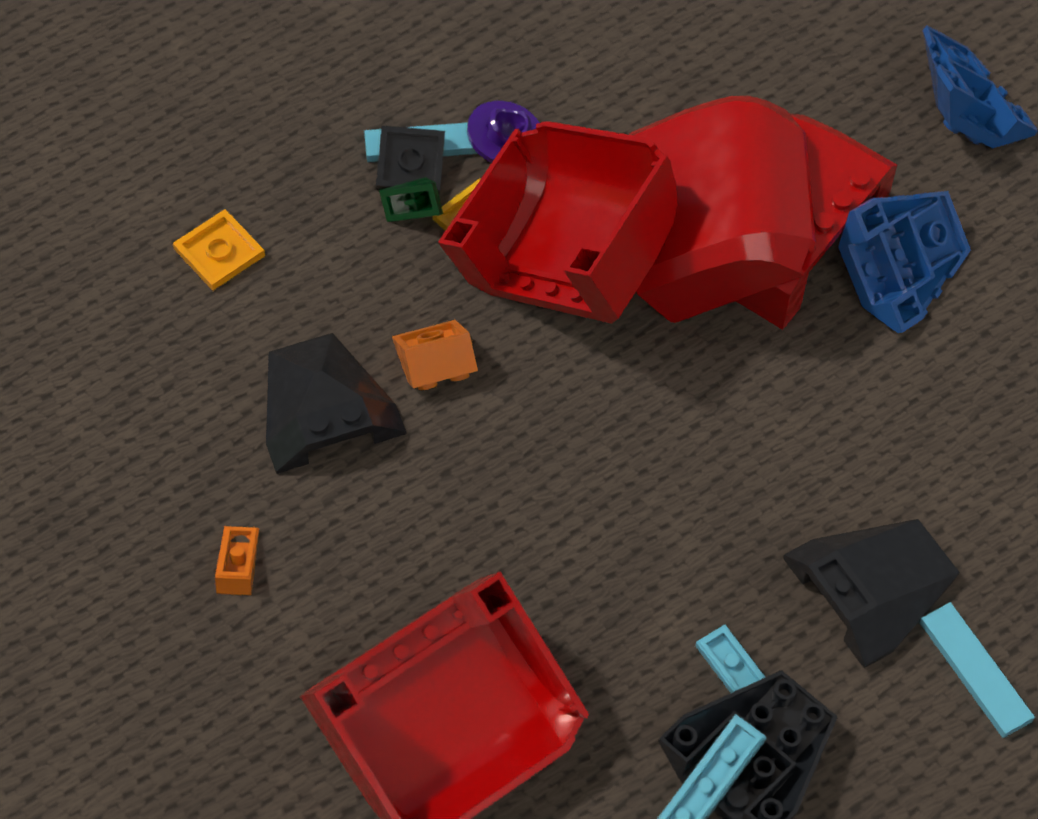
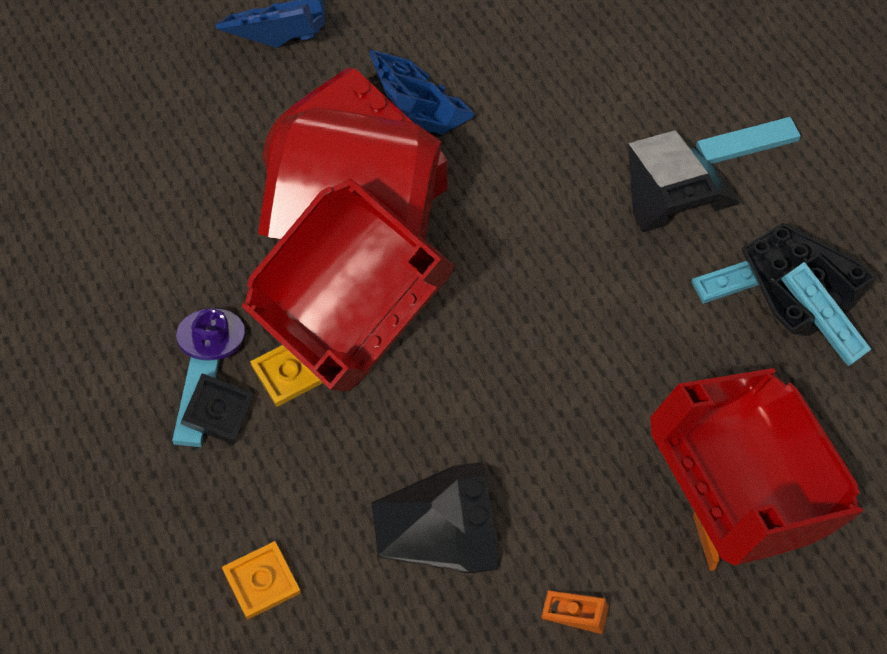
camera: 75 degrees left, 0 degrees up
(411, 200) = (263, 409): dark green slope -> none
(436, 354) = (415, 424): orange slope -> none

